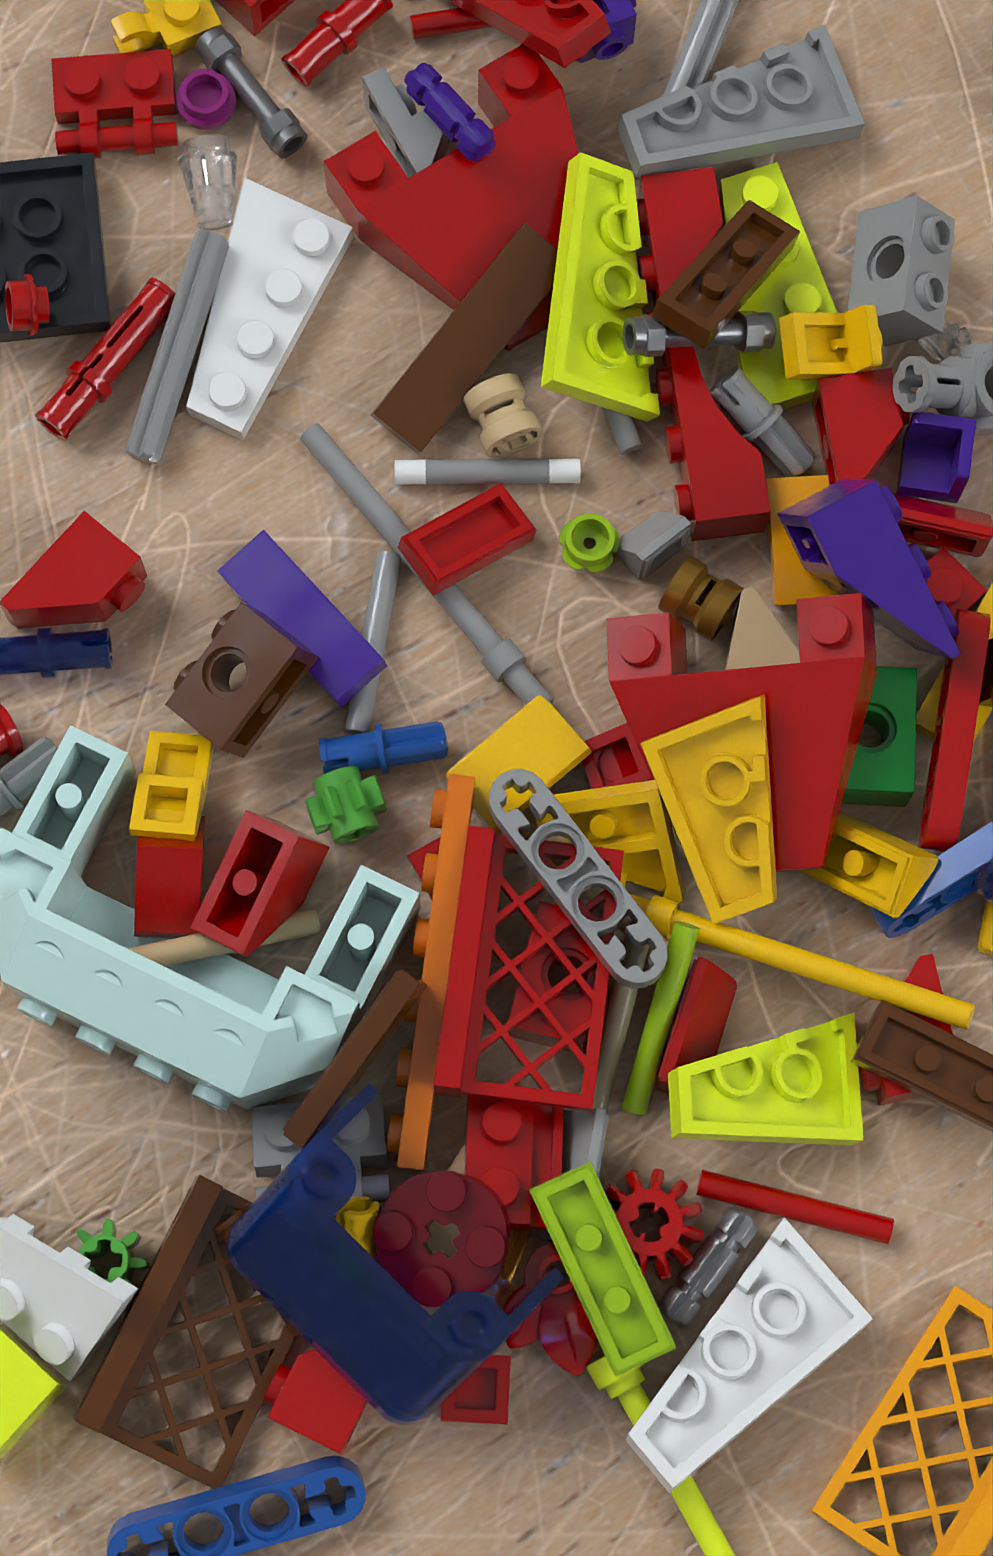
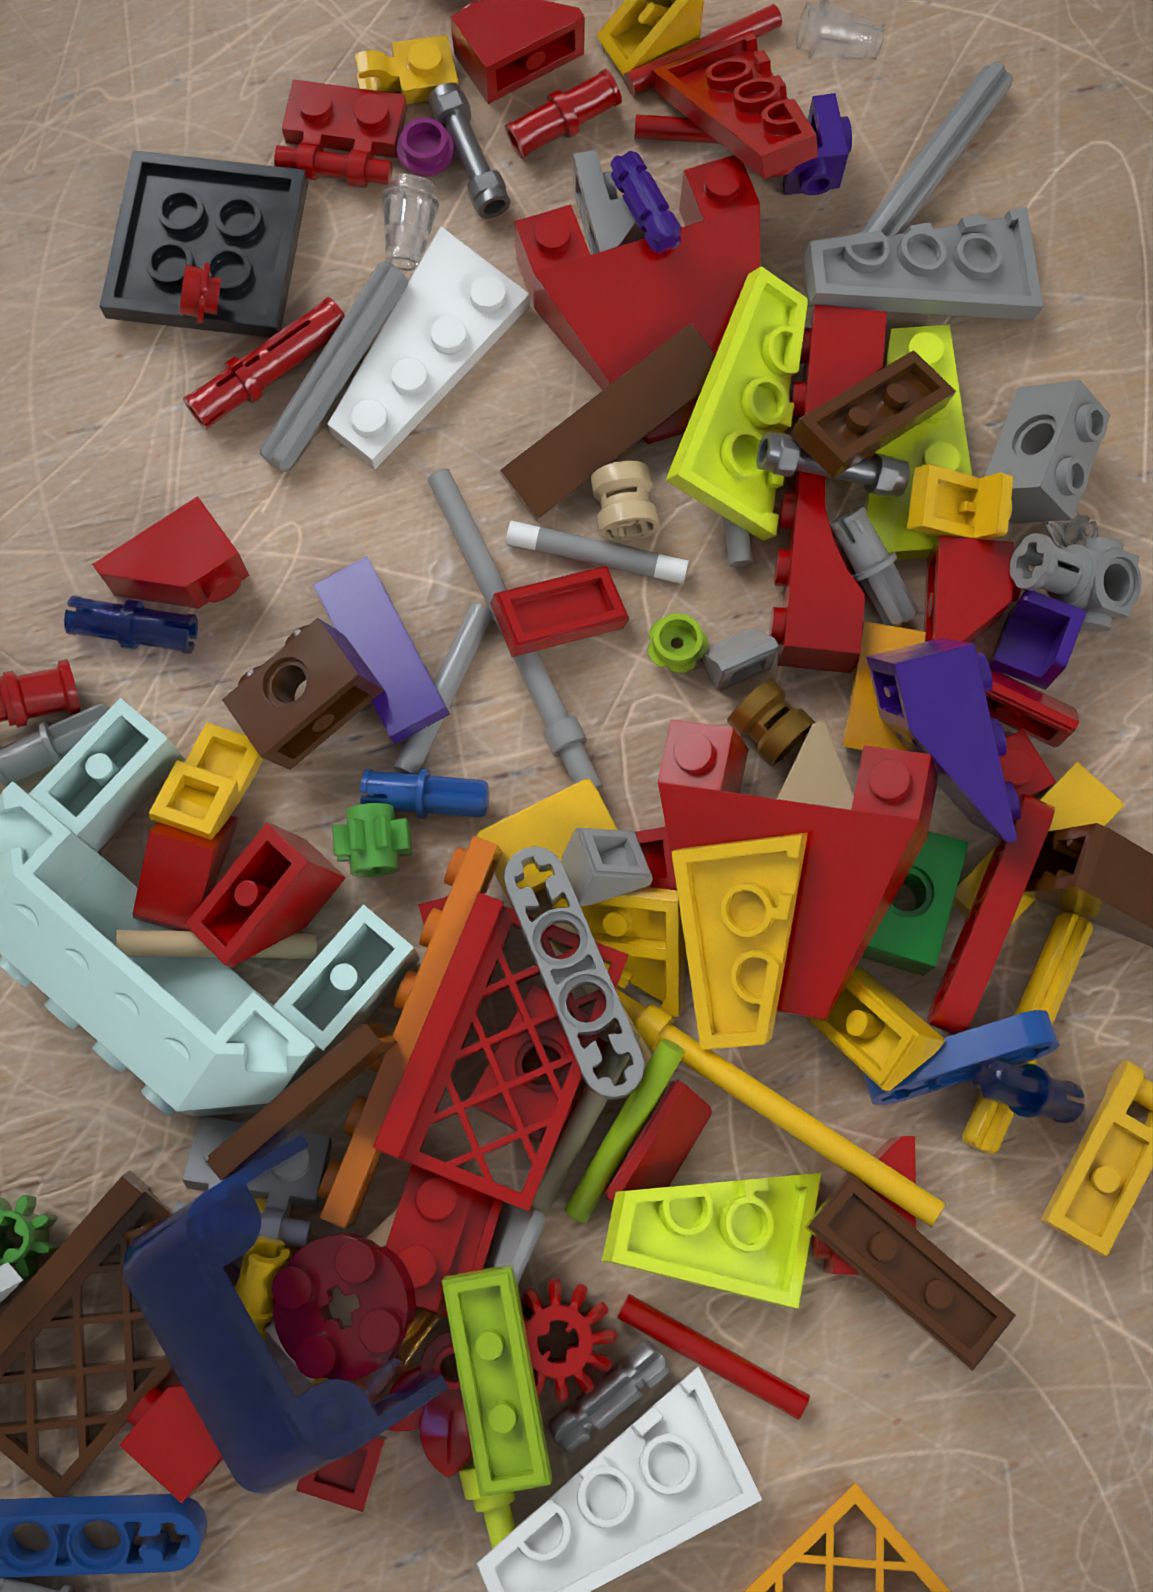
camera: 15 degrees right, 0 degrees up
(579, 771) = (604, 864): none -> light grey slope

